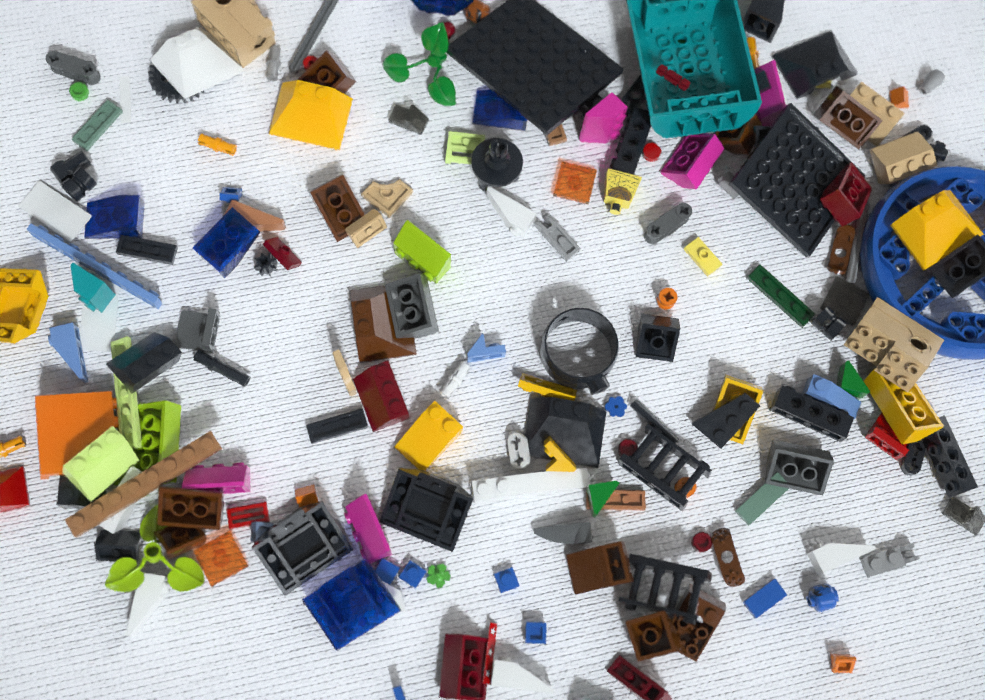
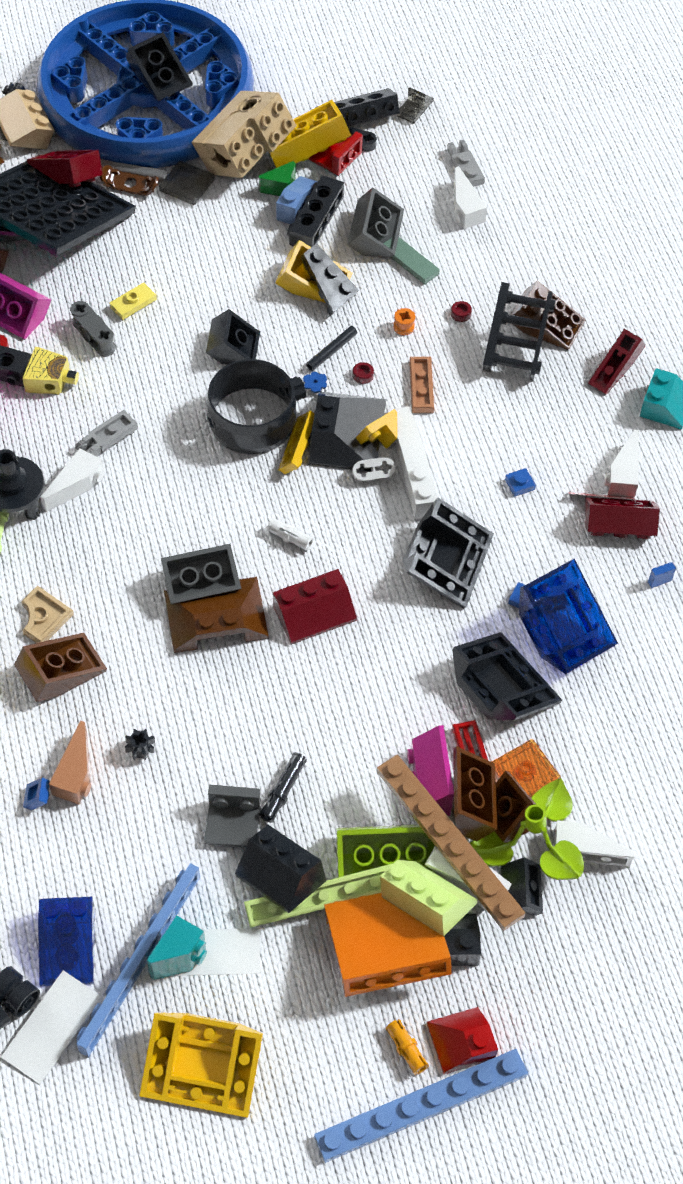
camera: 85 degrees left, 15 degrees down
(68, 344) = (259, 977): medium blue slope -> none
(146, 249) = (115, 894): black plate -> none
(227, 242) = (112, 784): clear blue slope -> none
(258, 529) = (491, 727): sand blue plate -> none
(282, 253) = (124, 726): dark red plate -> none
(306, 495) = (440, 683): orange slope -> none
(336, 426) = (352, 656): black tile -> none
(342, 368) = (286, 642): tan tile -> none
(366, 228) = (89, 634): tan slope -> none
(367, 529) = (478, 607): dark pink slope -> none
(412, 574) = (523, 570): blue plate -> none
(422, 252) = (127, 565): lime slope -> none
(429, 437) = (361, 556): yellow slope -> none
(438, 575) = (521, 548): bright green plant -> none
(481, 352) = (251, 506): medium blue slope -> none
(535, 633) = (575, 453): blue plate -> none
(566, 534) = (463, 425): dark grey piece -> none
(575, 182) = (34, 419): clear orange plate -> none
(599, 494) = (423, 390): green slope -> none
(599, 567) = (501, 389): reddish brown slope -> none
(653, 635) = (570, 342): reddish brown slope -> none
(662, 486) = (393, 351): black fence -> none
(664, 302) = (186, 338): orange wheel -> none
(724, 180) = (44, 272): light grey cone -> none
(731, 571) = (461, 288): reddish brown piece -> none
(764, 598) = (515, 261): blue tile -> none
(780, 296) = (180, 236): dark green tile -> none
(822, 597) = (510, 212): blue head -> none
(834, 327) = (215, 192): black wheel -> none
(842, 663) = (571, 204): orange slope -> none
(935, 228) = (116, 89): yellow slope -> none

